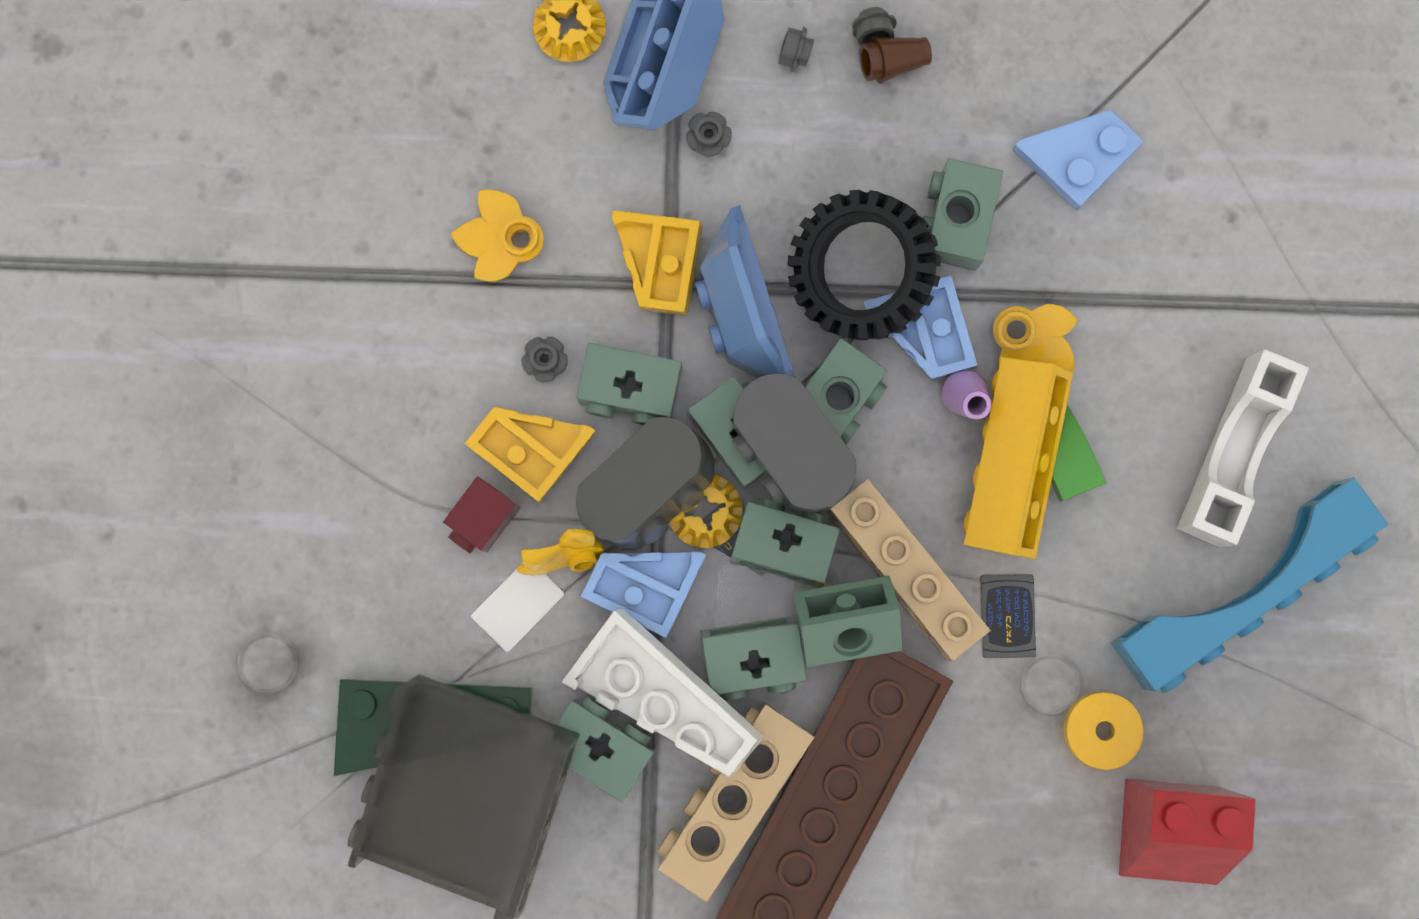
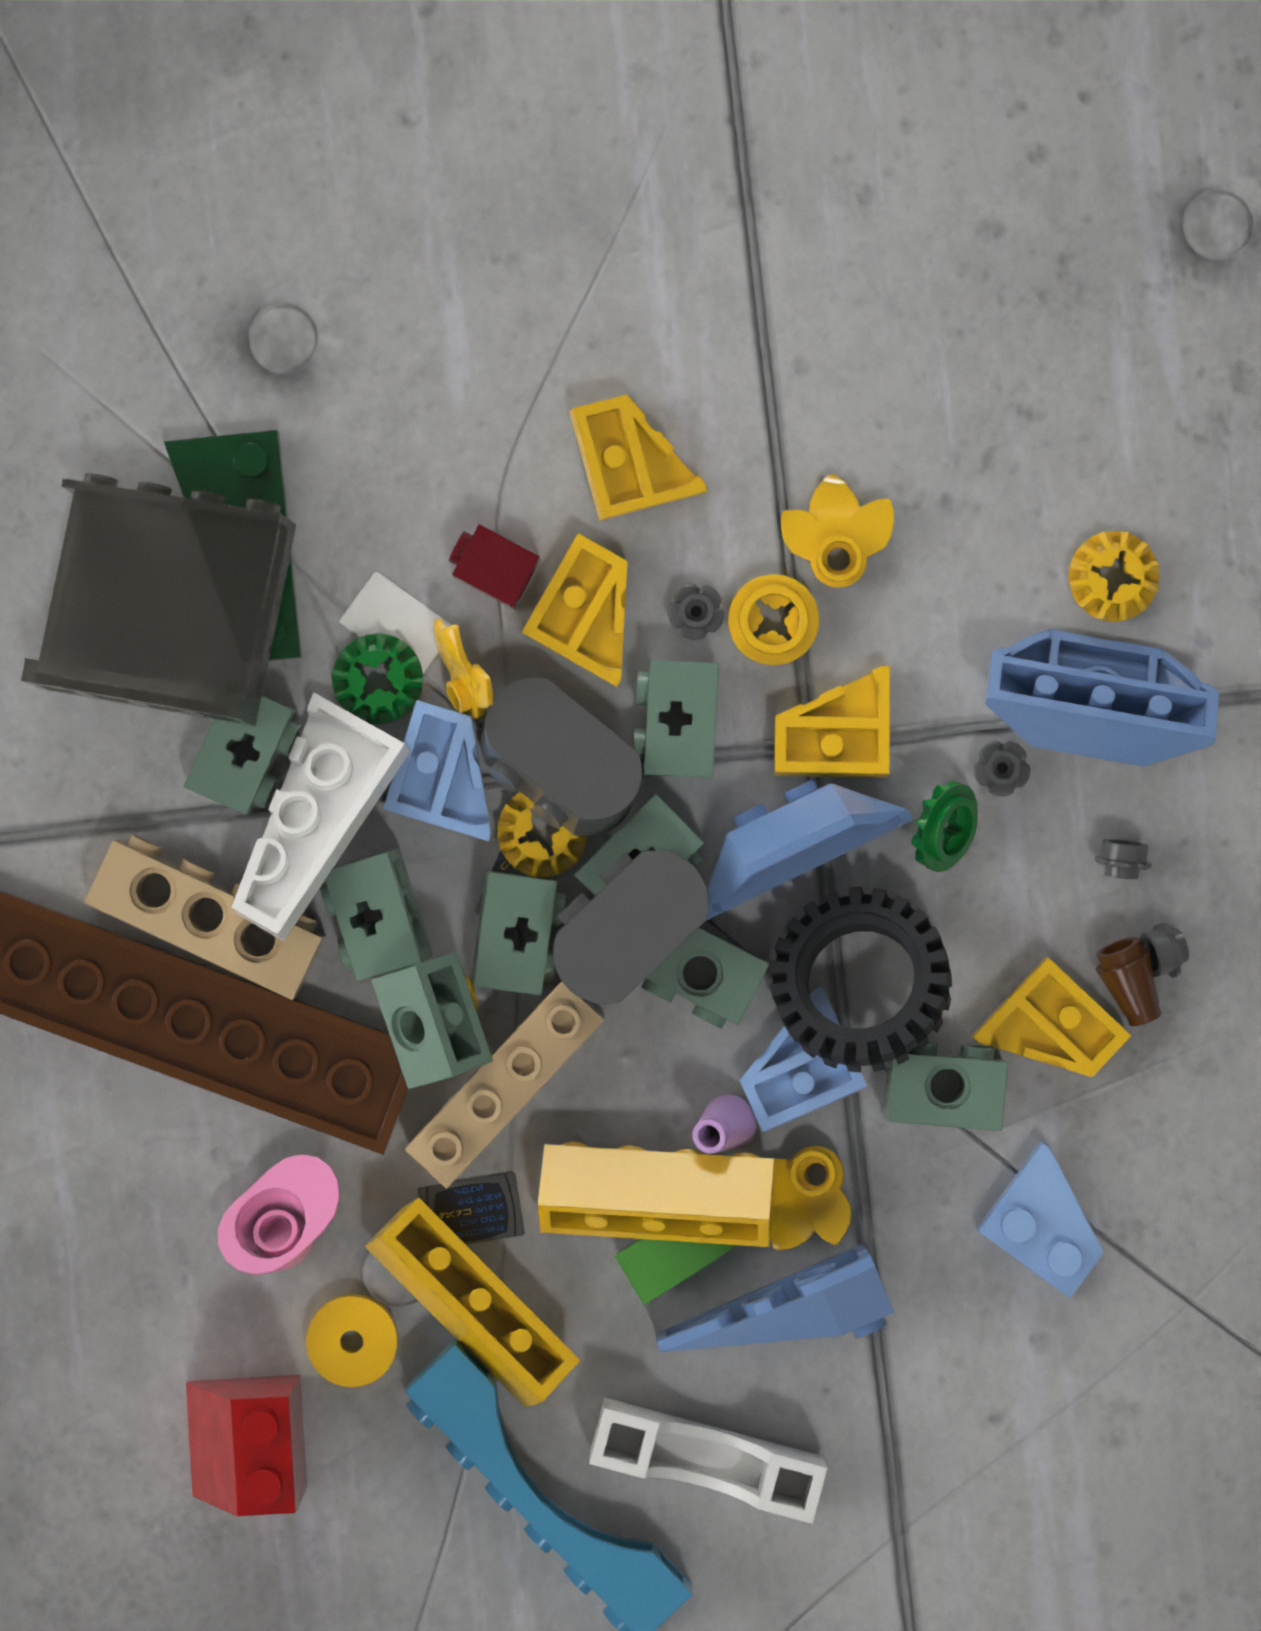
camera: 80 degrees right, 5 degrees up
(413, 395) = (628, 460): none -> yellow wing
(557, 604) = (404, 673): none -> green gear
(568, 277) = (775, 592): none -> yellow gear
(749, 182) = (943, 846): none -> green gear
(919, 122) = (1053, 1023): none -> yellow wing
(994, 775) = (280, 1216): none -> bright pink piece
(1087, 624) = (472, 1303): none -> yellow brick
(1121, 343) = (812, 1303): none -> medium blue wedge

